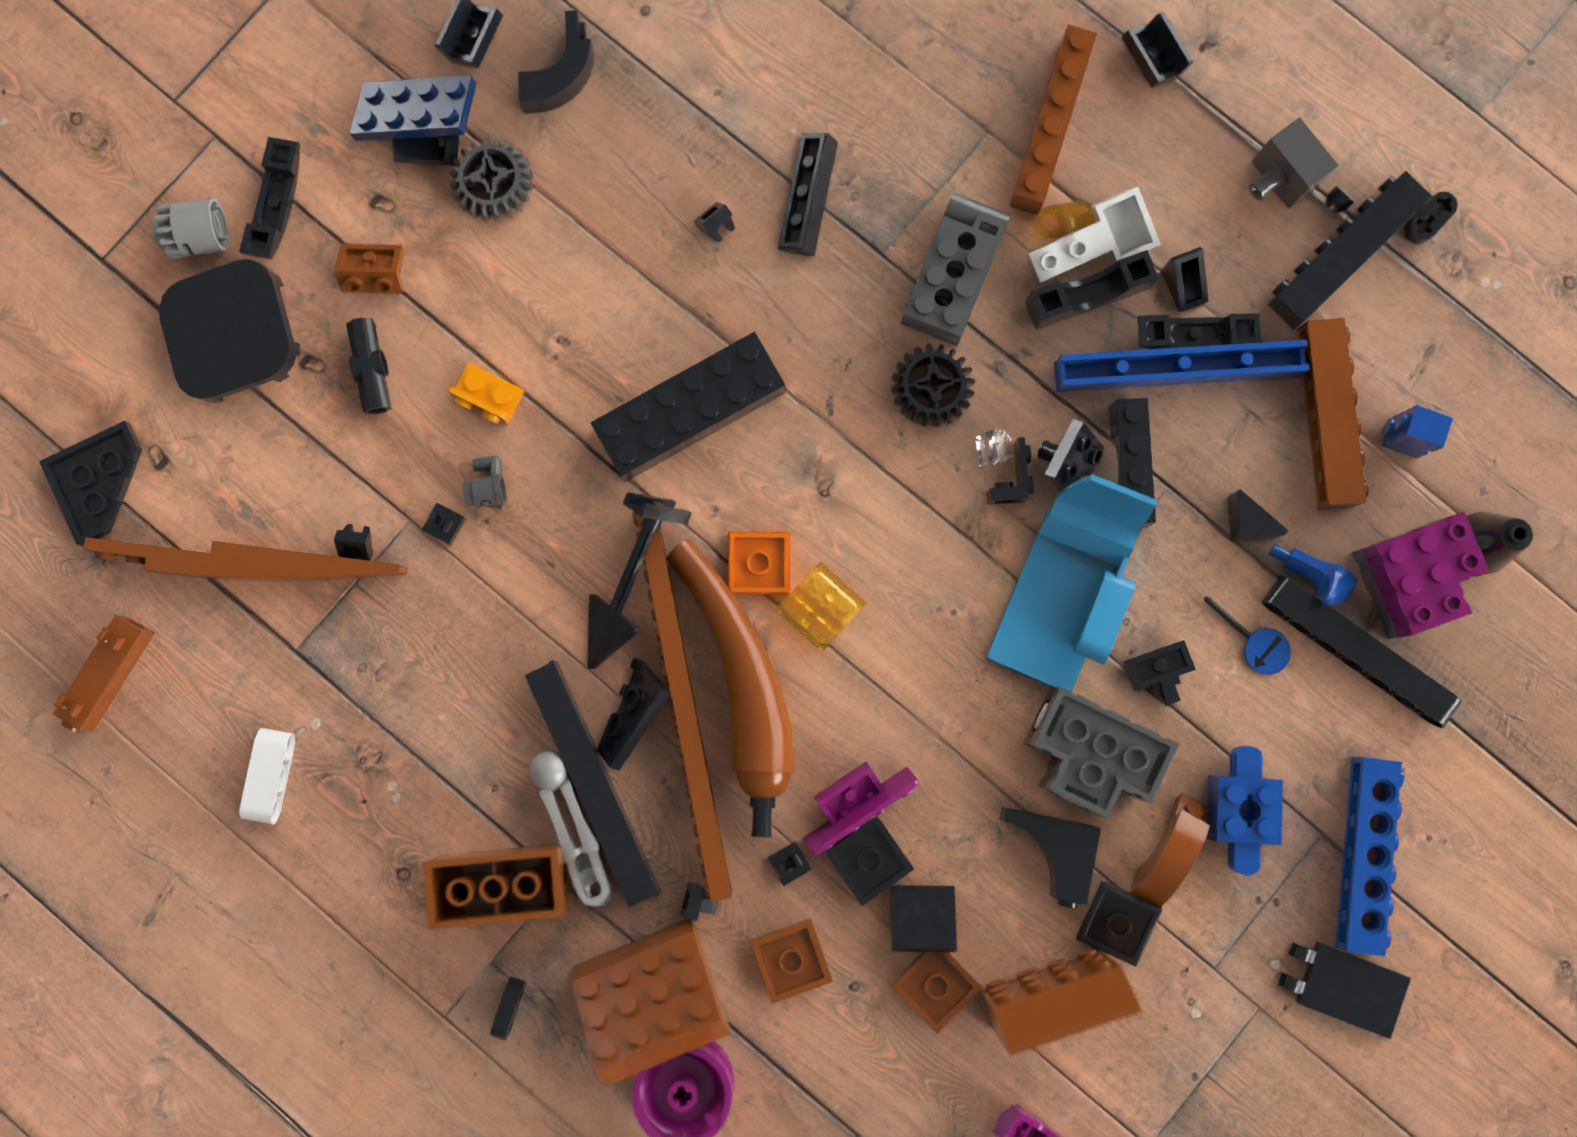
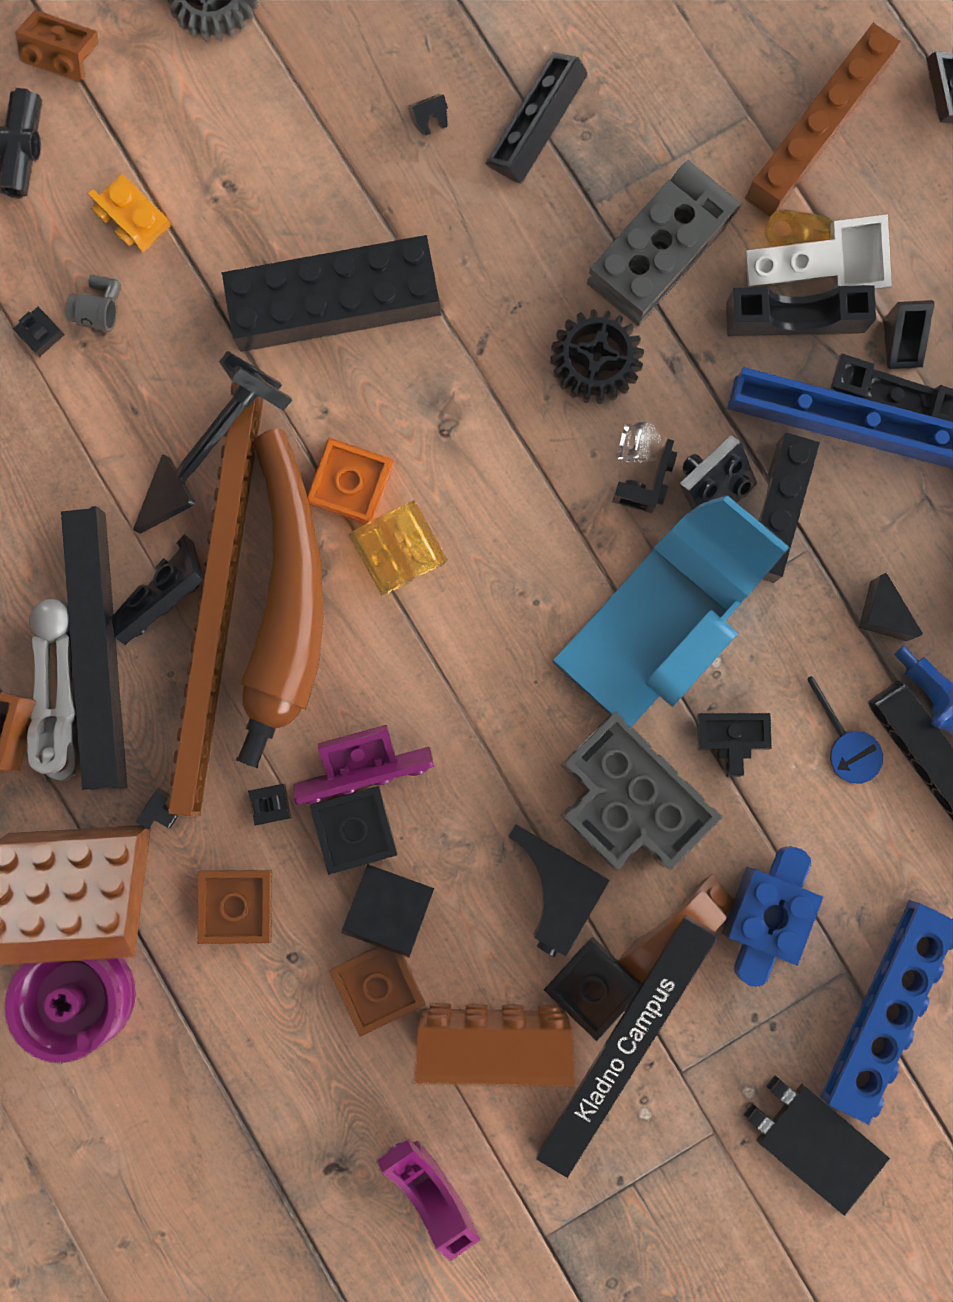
camera: 25 degrees right, 0 degrees up
(1164, 961) = (627, 1045): none -> black tile

